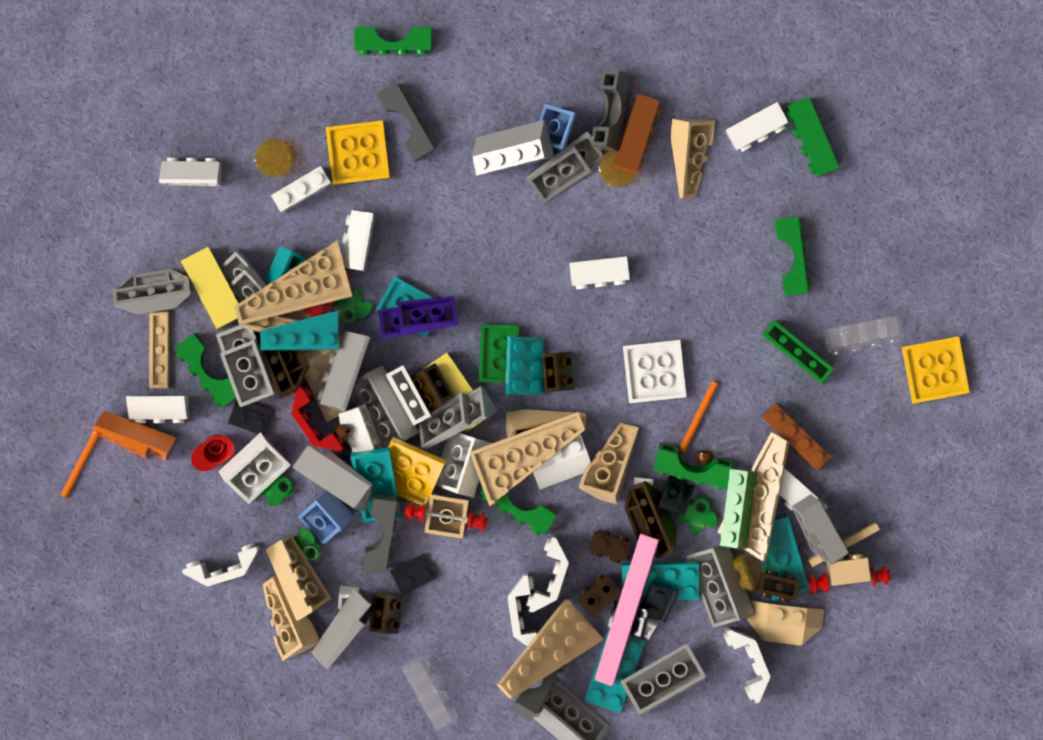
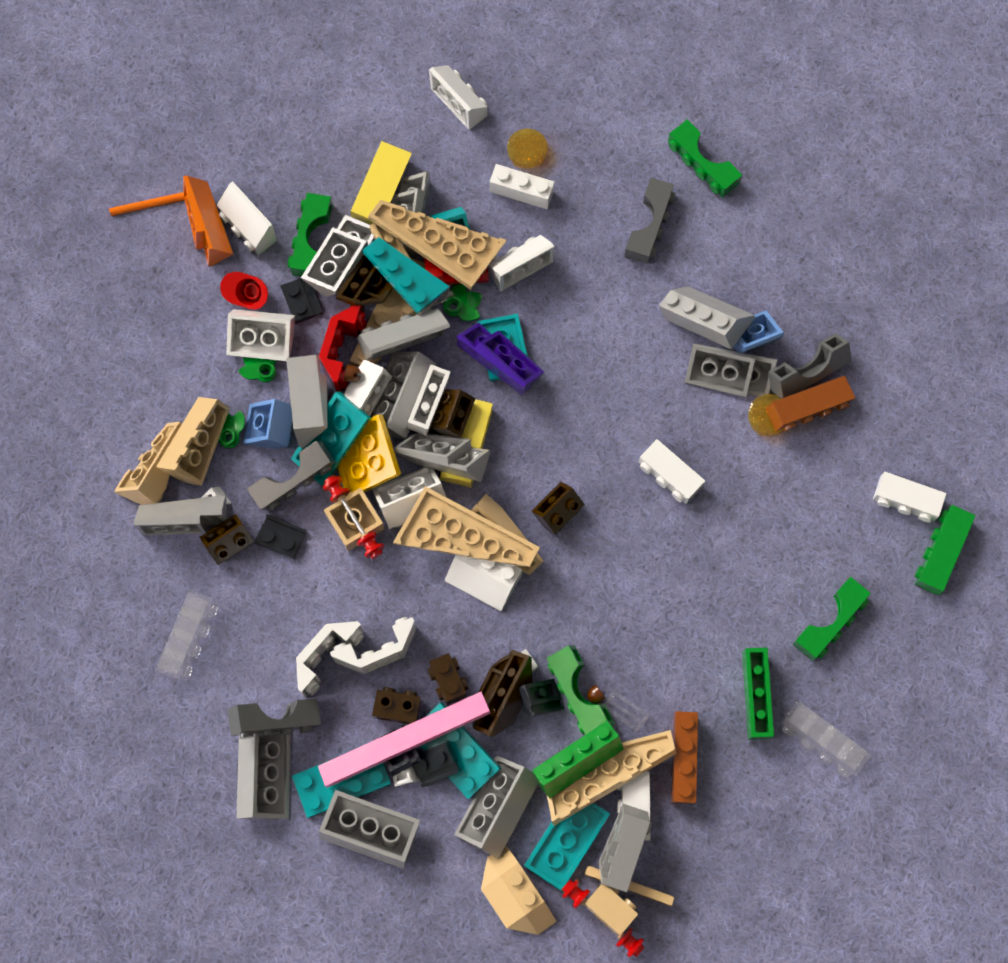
camera: 45 degrees right, 15 degrees down
(151, 291) = (334, 141): light grey wedge -> none
(159, 350) = (295, 188): tan tile -> none
(199, 571) = (176, 389): white slope -> none
(357, 152) = (590, 206): yellow plate -> none
(494, 351) = (529, 449): green plate -> none
(524, 366) = (537, 477): teal plate -> none
(538, 518) = (419, 598): green arch -> none
(556, 644) = (320, 702): tan wing -> none
(608, 470) = (510, 623): tan wedge -> none
(654, 371) = (630, 589): white plate -> none
(689, 144) = (841, 456): tan wedge -> none
(698, 416) = (619, 662): orange bar -> none
(699, 518) = (538, 737): green plate -> none
(748, 578) = (526, 822): clear yellow tile -> none
(757, 685) = (432, 918): white slope -> none
(784, 587) = (538, 850): dark brown brick -> none
(935, 369) = (853, 831): yellow plate -> none

